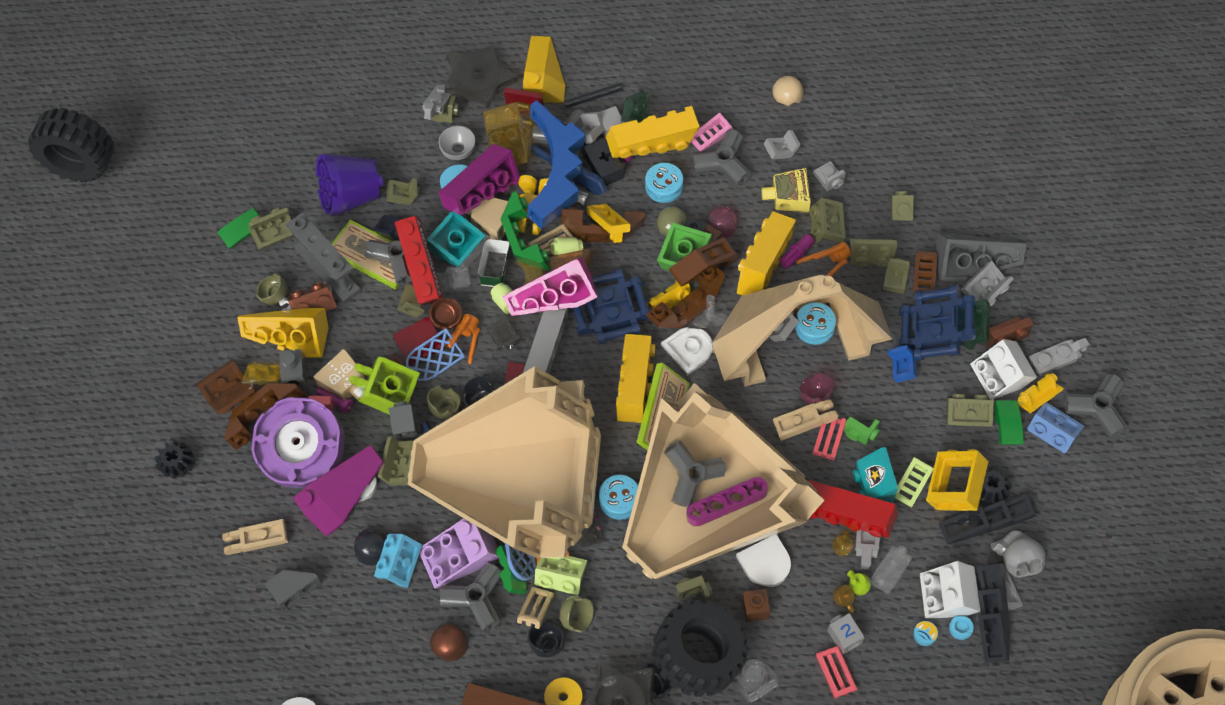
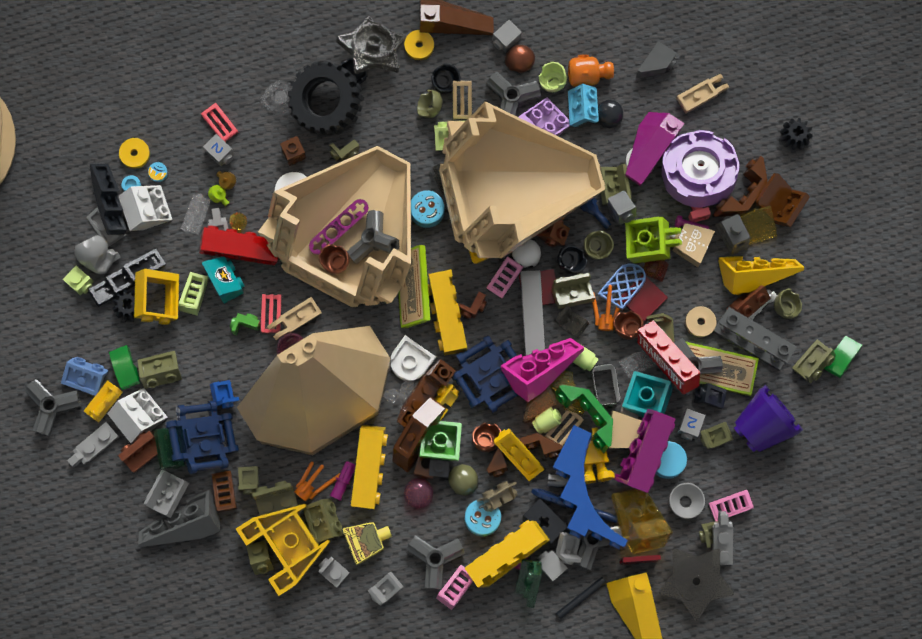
camera: 155 degrees right, 15 degrees up
(369, 310) = (693, 326): none -> tan piece
(375, 598) = (588, 71): none -> orange piece
(408, 125) = (741, 509): none -> bright pink slope
(417, 598) = (553, 71): none -> yellowish green hair
(423, 206) = (691, 424): none -> light grey brick
(454, 671) = (506, 36): none -> light grey brick
(491, 362) = (572, 290): none -> olive bracket
(599, 378) = (478, 305): none -> copper bracket
(634, 245) = (483, 443): none -> copper hair
(639, 195) = (491, 497): none -> dark tan hinge
(742, 464) = (334, 259): none -> copper hair
(869, 206) = (289, 541): none -> yellow wedge
(945, 674) = (128, 147): none -> yellow piece
(1044, 531) = (78, 280): none -> yellowish green bracket

